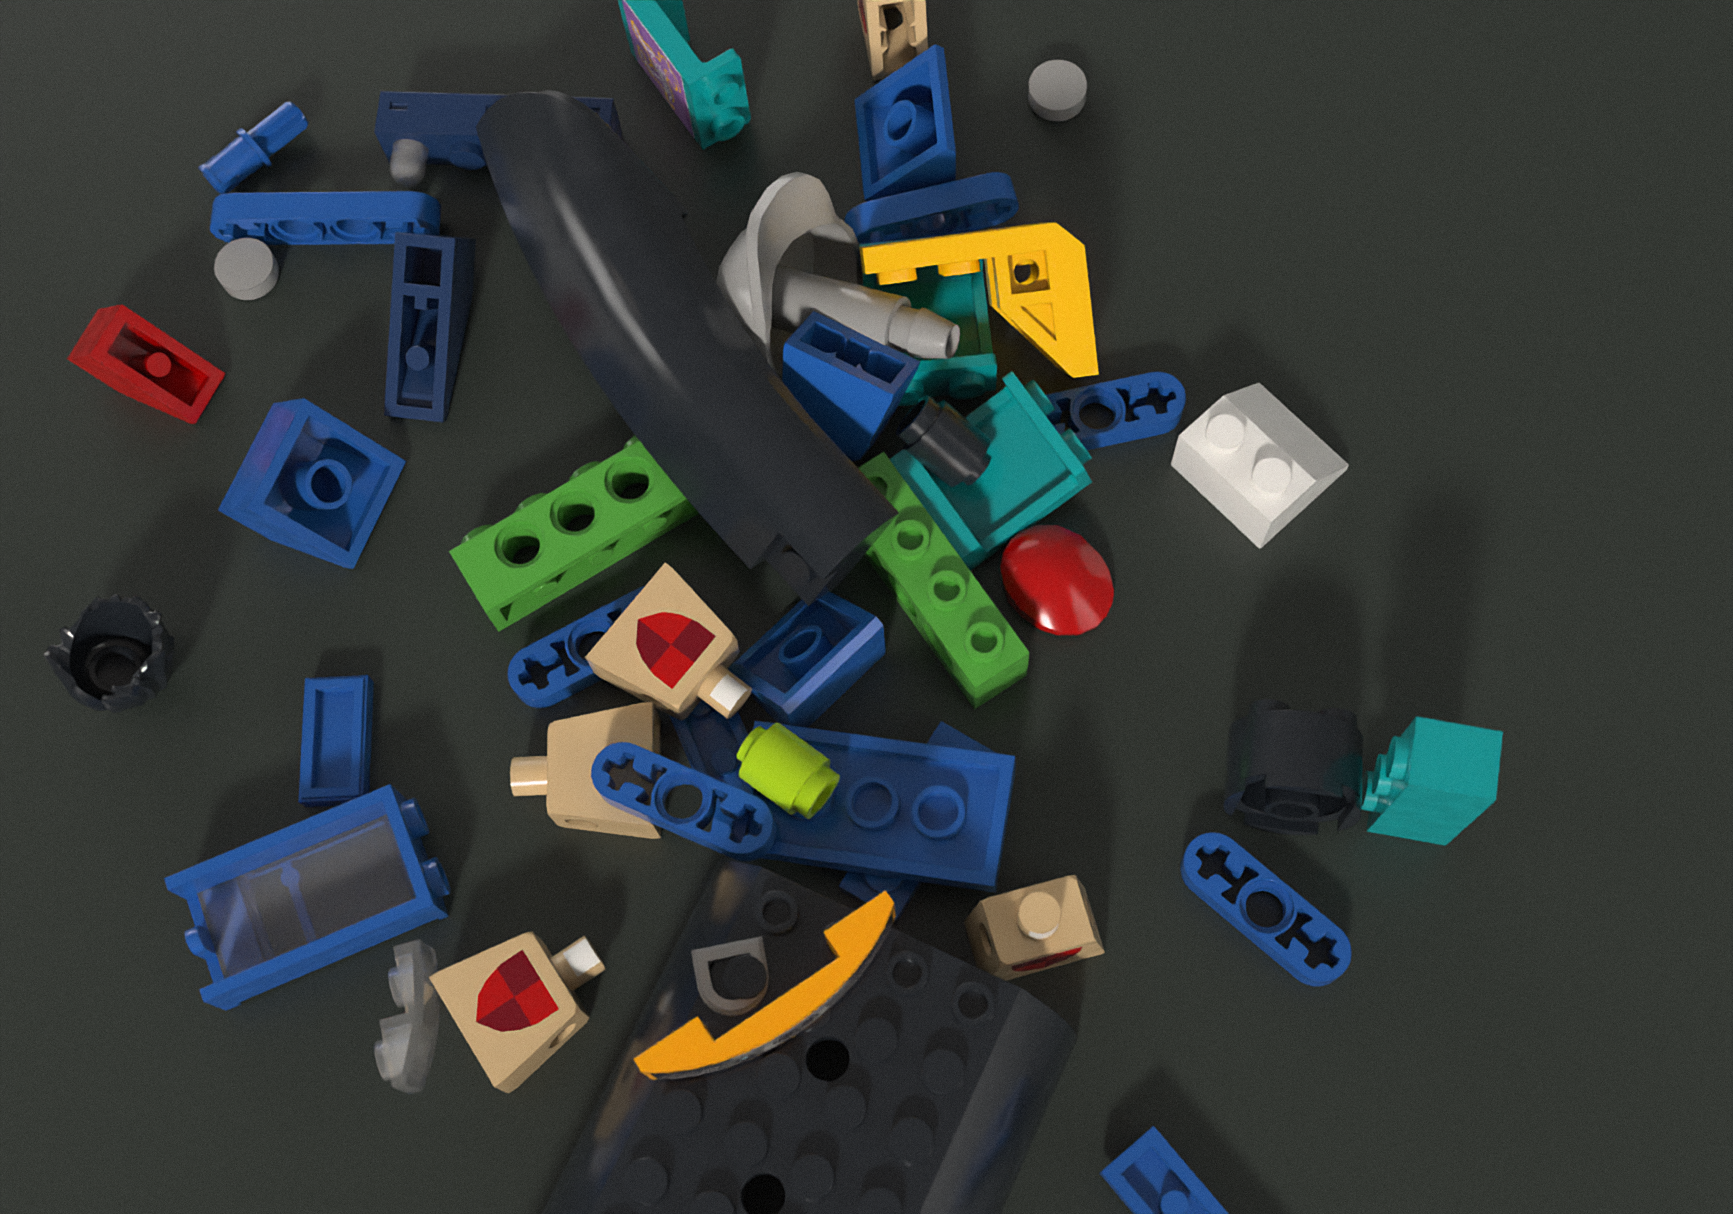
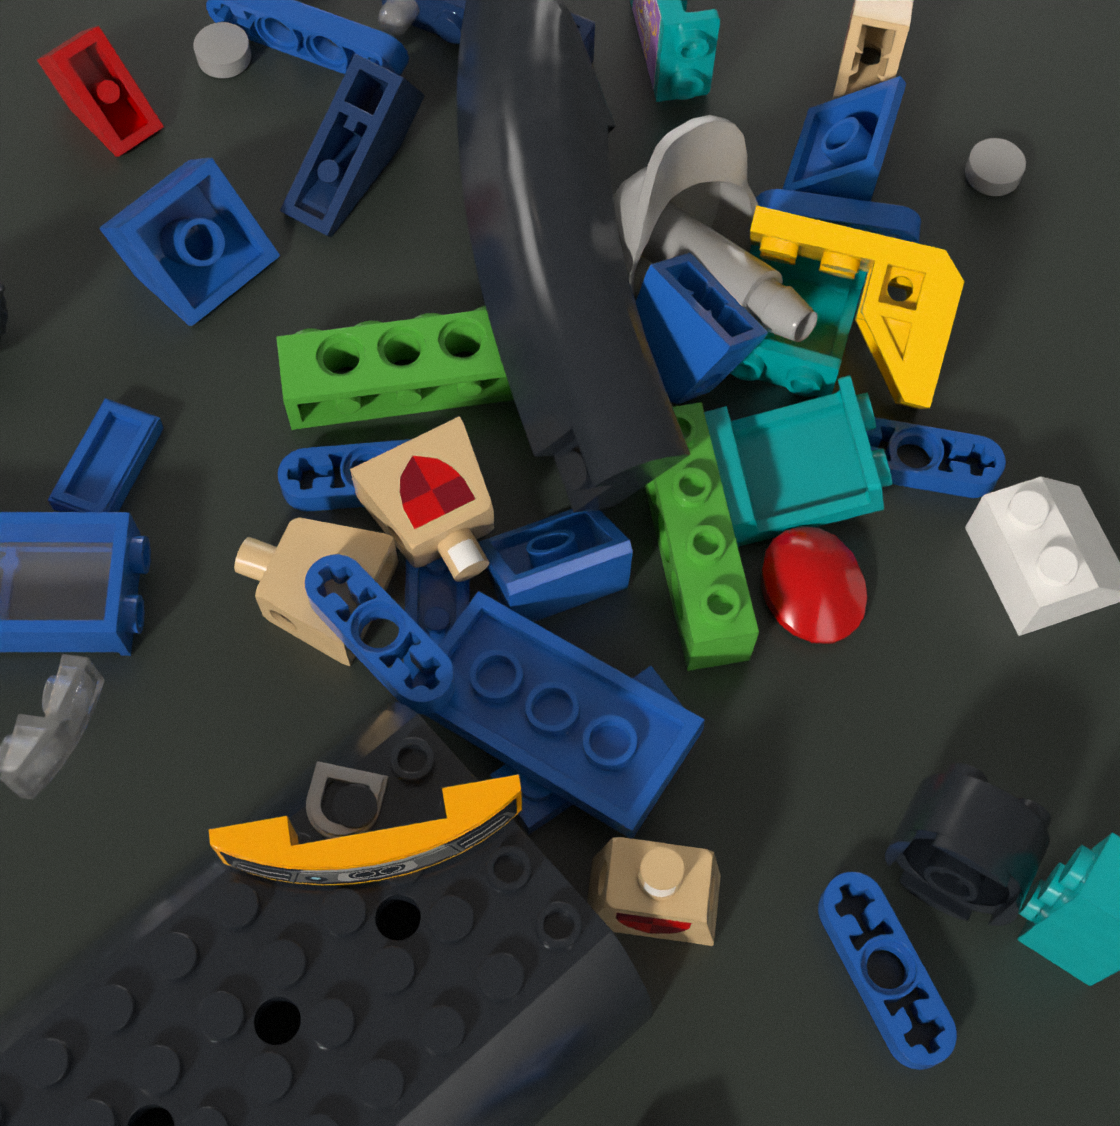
camera: 15 degrees right, 5 degrees down
(518, 1003) = (150, 755): tan torso -> none
(786, 770) = (485, 643): lime brick -> none
(945, 442) = (761, 416): black brick -> none

